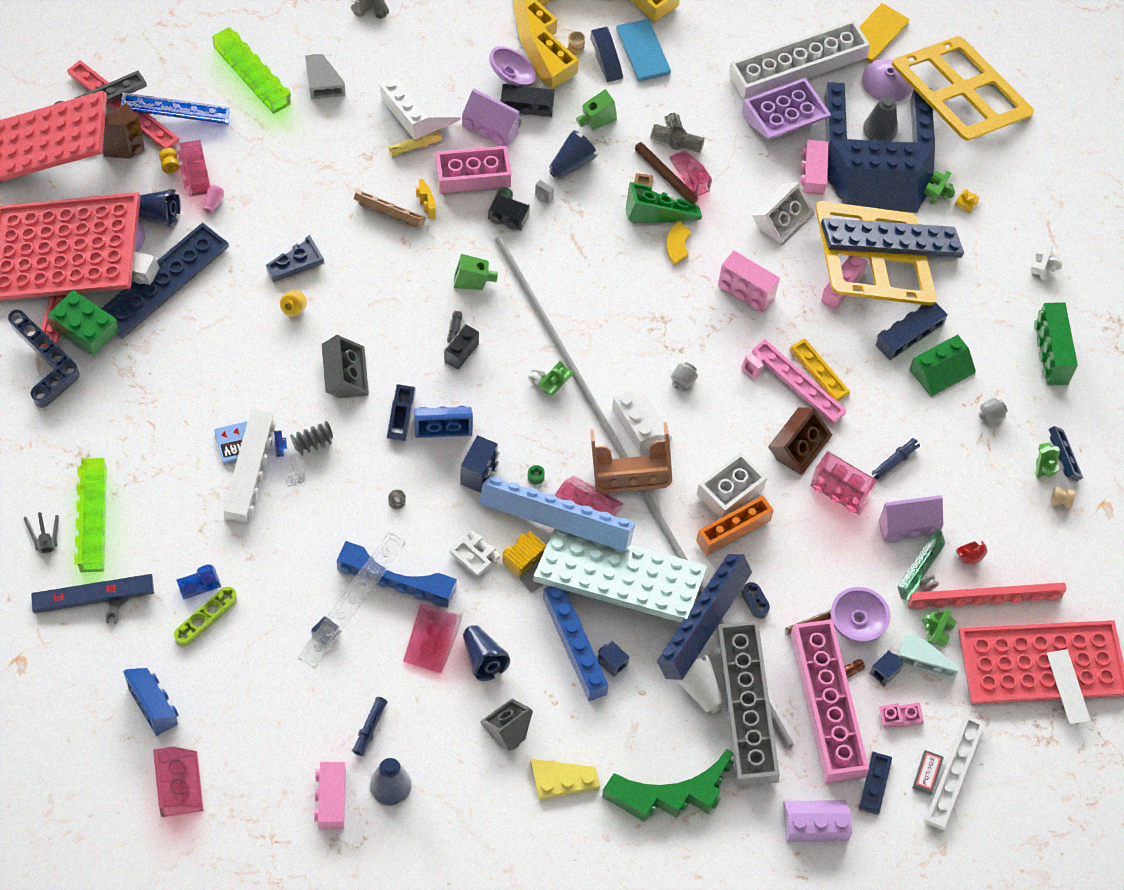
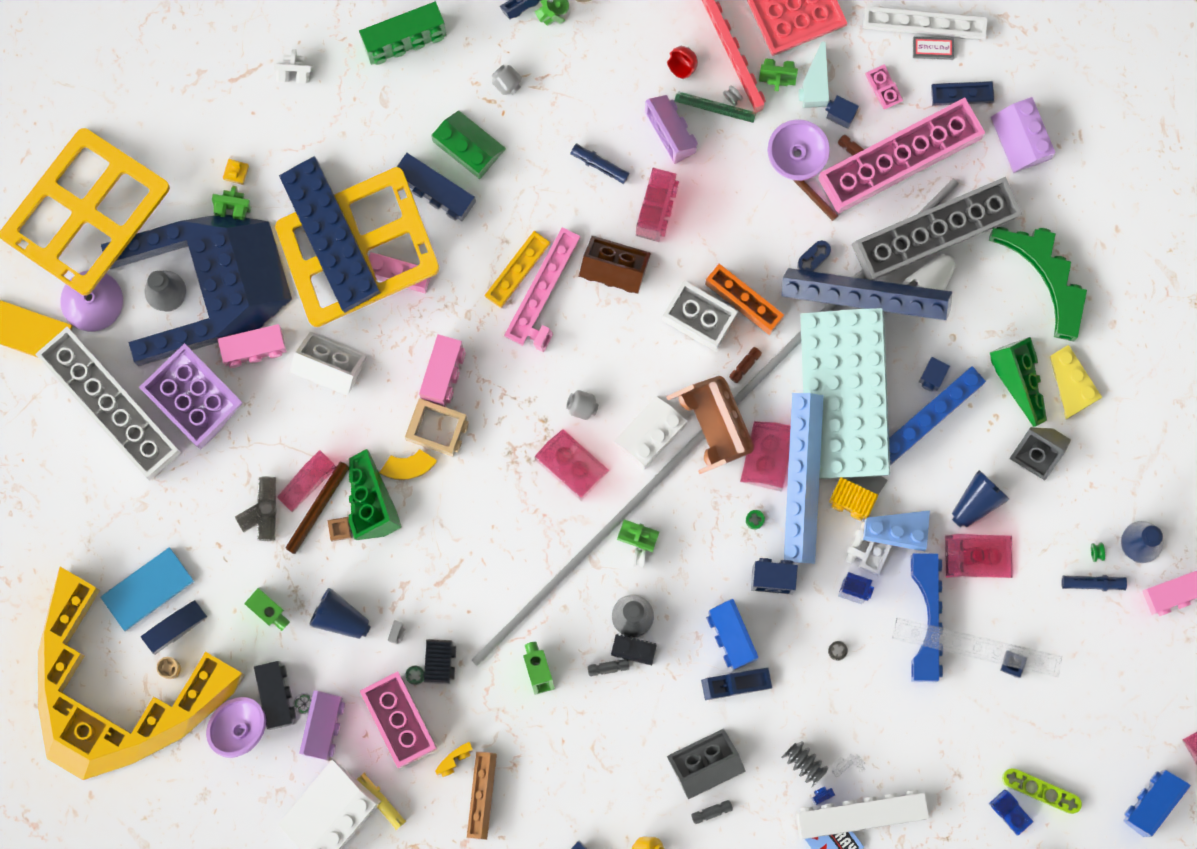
camera: 105 degrees left, 20 degrees up
(303, 371) = (712, 812): none -> dark grey axle
(396, 738) = (1097, 552): none -> green bush
(444, 522) = (856, 588): none -> clear blue brick
(481, 580) = (899, 530): none -> light blue wing
(490, 354) = (632, 616): none -> dark grey cone
(586, 732) = (1016, 369): none -> green wedge
(635, 352) = (571, 464): none -> clear pink slope
(675, 512) = (747, 362): none -> copper axle
(709, 255) = (414, 425): none -> tan window

